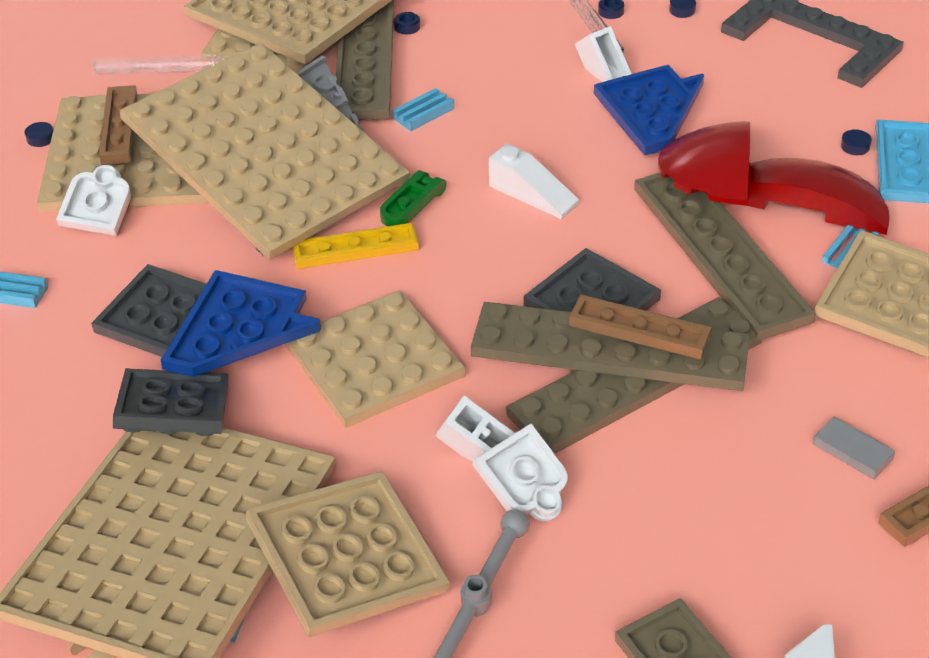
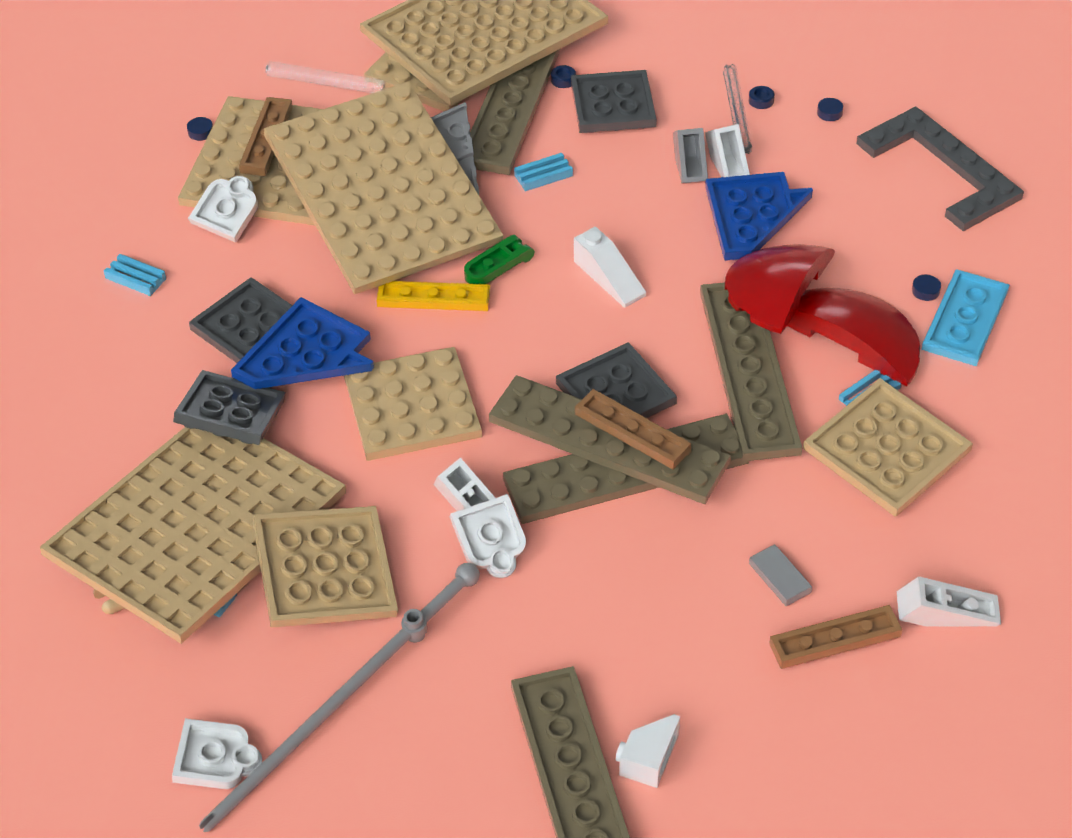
camera: 15 degrees right, 5 degrees up
(468, 35) = (613, 101): none -> dark grey plate
(568, 65) = (690, 155): none -> light grey slope

